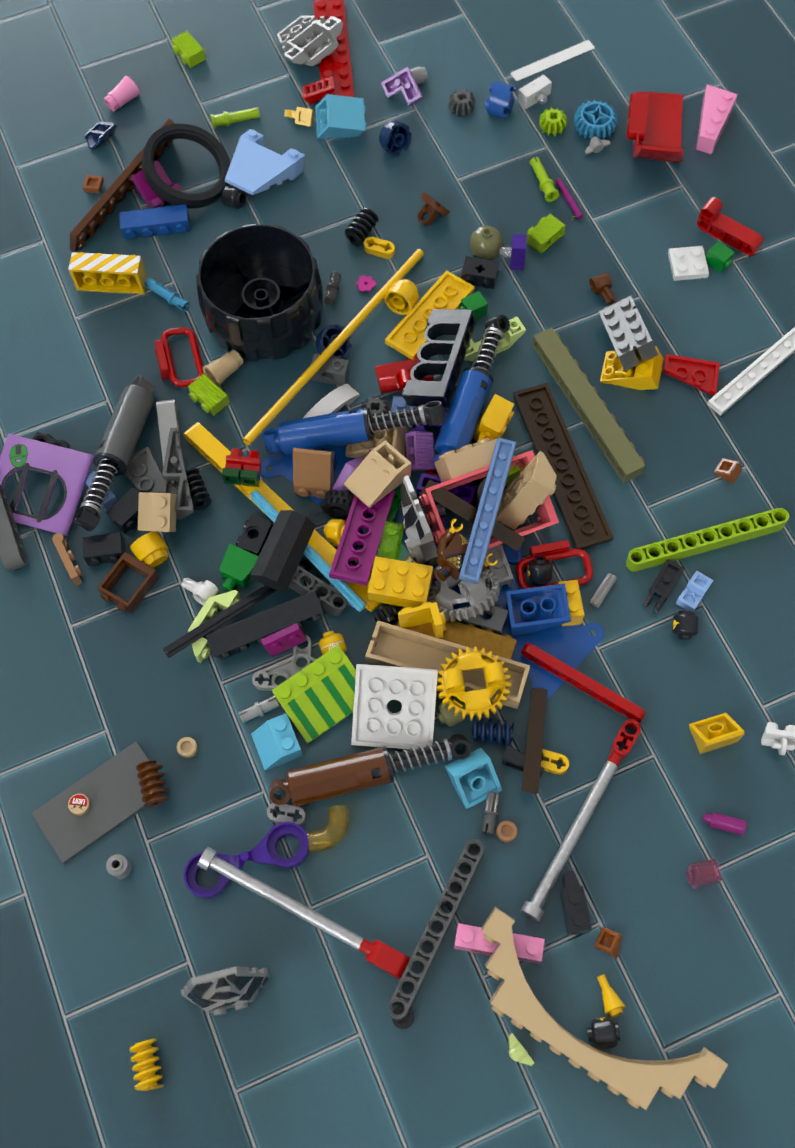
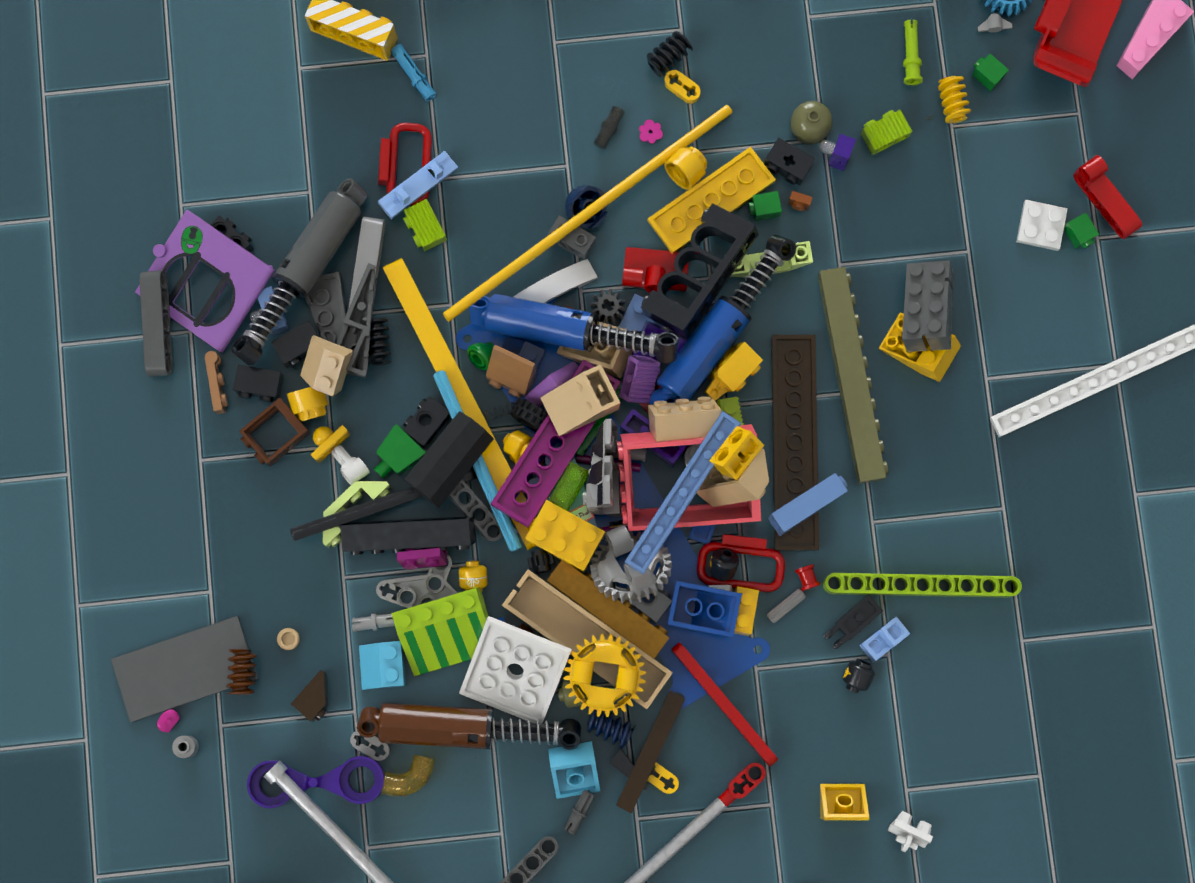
camera: 15 degrees right, 15 degrees up
(79, 804) = (161, 667): tile -> none
(96, 850) = (167, 720): none -> dark pink piece
(175, 575) = (327, 441): none -> yellow tile
(193, 367) = (417, 185): none -> light blue hinge
(223, 367) = (451, 195): tan plant -> none
(223, 789) = (313, 698): none -> dark brown slope
(242, 469) = (434, 341): hips -> none
(260, 291) = (510, 85): black wheel -> none
(283, 474) = (480, 354): none -> green brick
(423, 614) = (590, 595): yellow bracket -> none
(431, 207) = (764, 55): reddish brown tile -> none
(451, 553) = (629, 526): reddish brown torso -> none
(469, 513) = (664, 484): dark brown sticker -> none
(498, 296) = (799, 201): none -> dark orange plate
(501, 568) = (680, 546): light grey hinge -> none
(506, 831) = (589, 835): medium nougat tile -> none
(522, 461) = (736, 453): none -> yellow brick
(569, 198) = (933, 87): magenta bar -> none
(587, 198) = (952, 99): none -> yellow piece
(590, 502) = (808, 504): none -> medium blue slope
(602, 285) = (926, 224): reddish brown axle -> none
(606, 174) = (989, 71): none -> green brick
(612, 562) = (807, 577): none -> red bush
(694, 372) = (991, 374): red wing -> none
(728, 470) = (980, 507): dark orange slope -> none

